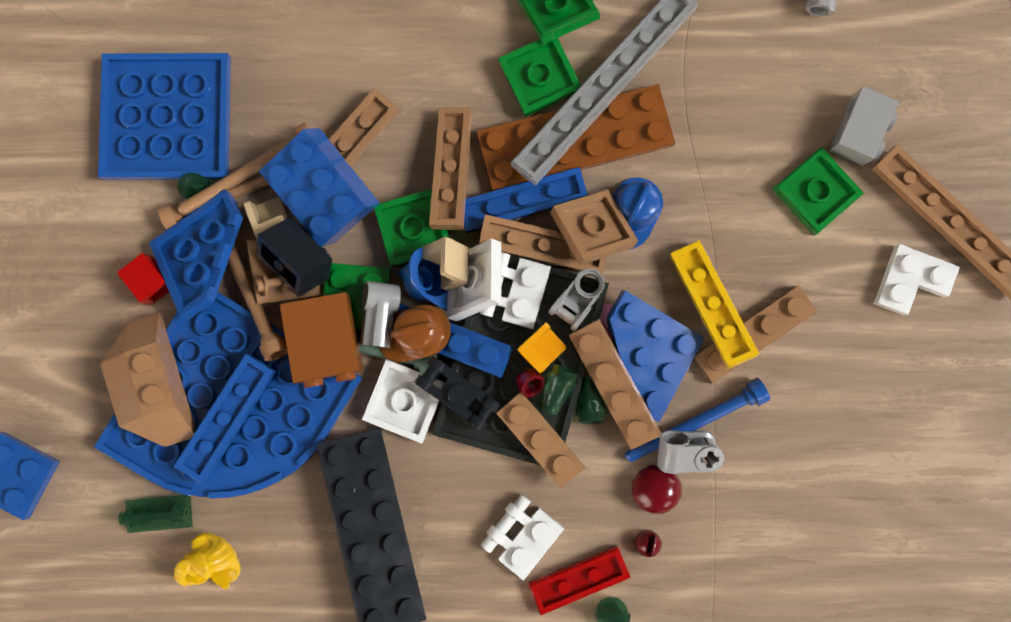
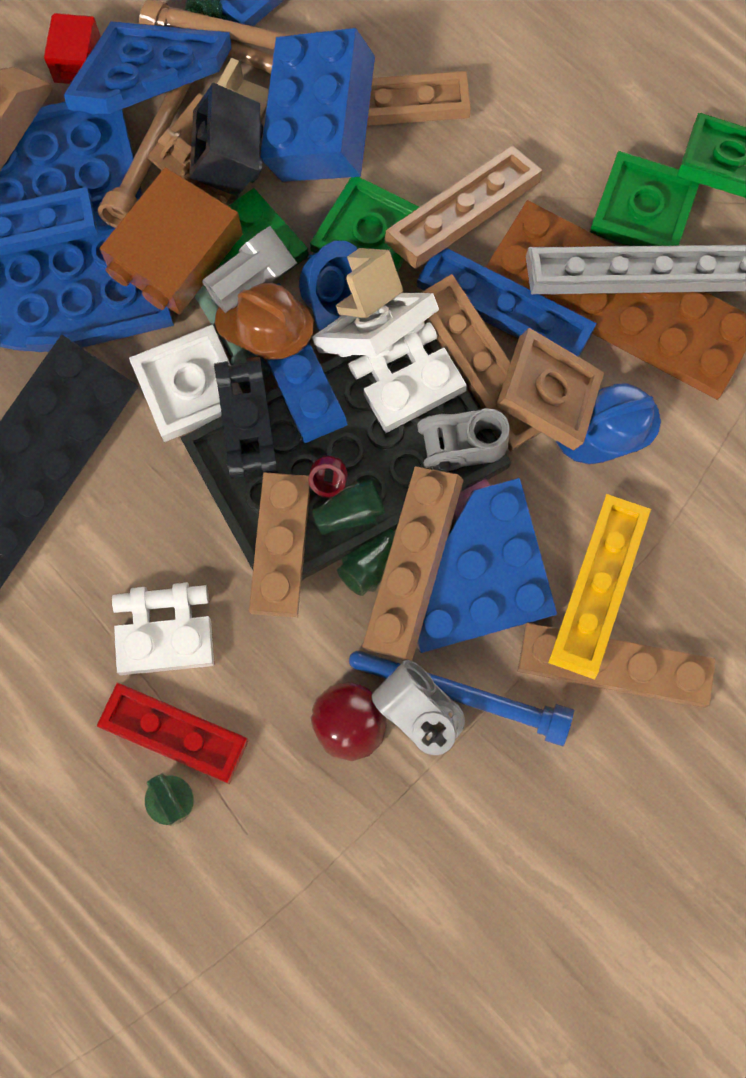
camera: 45 degrees right, 10 degrees down
(541, 348) = (375, 452): light orange panel -> none
(641, 543) = (287, 777): dark red hinge -> none

